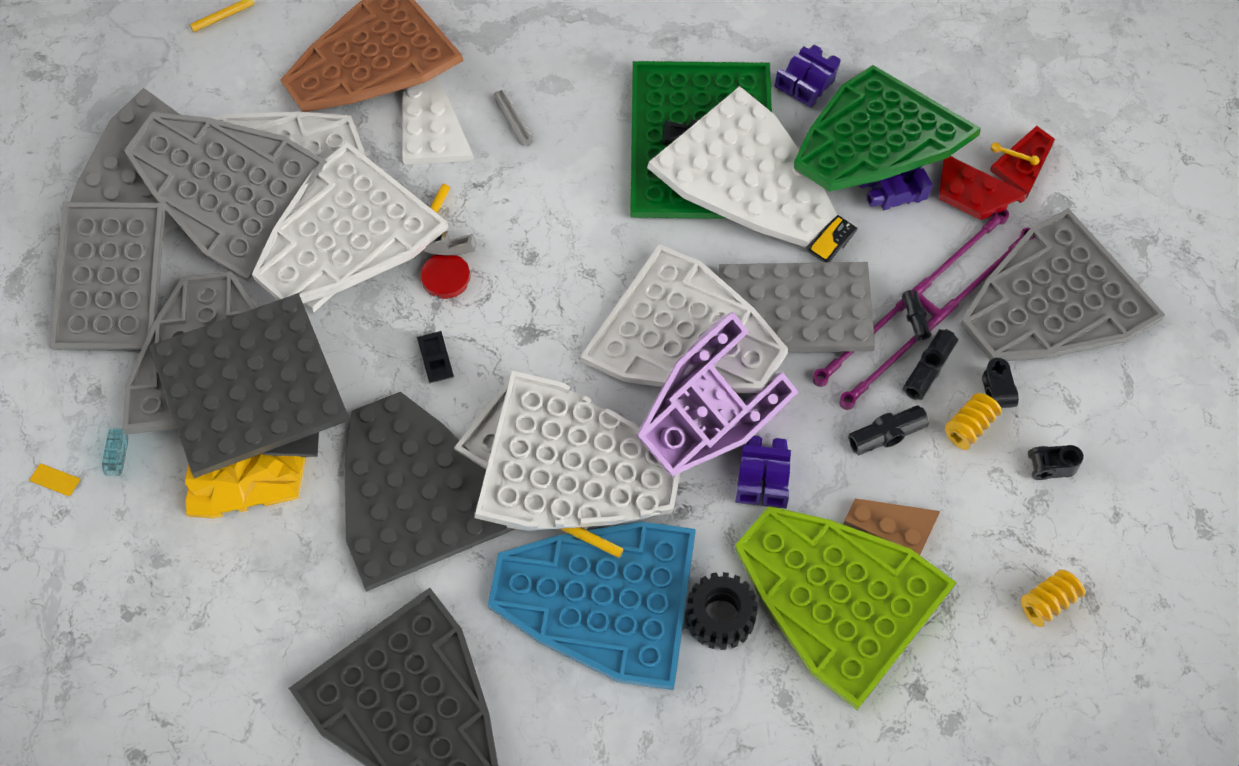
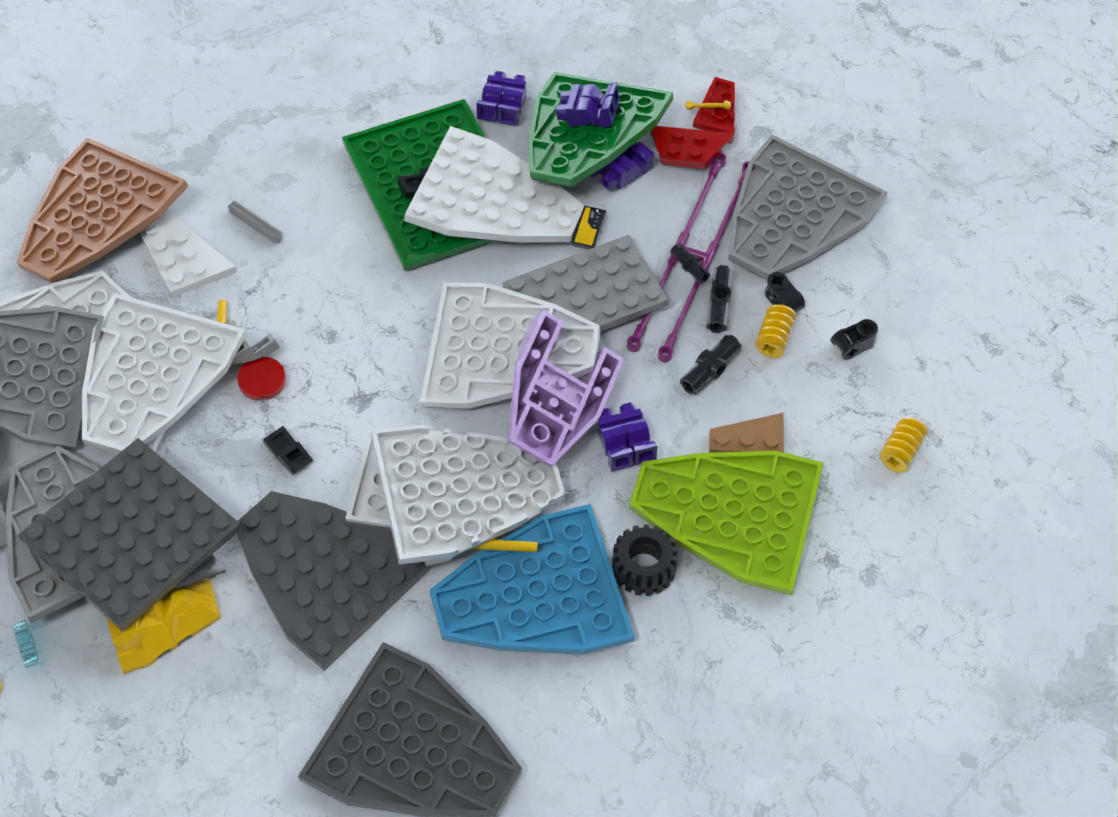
camera: 25 degrees left, 5 degrees down
(886, 113) = (588, 105): none -> dark purple hips

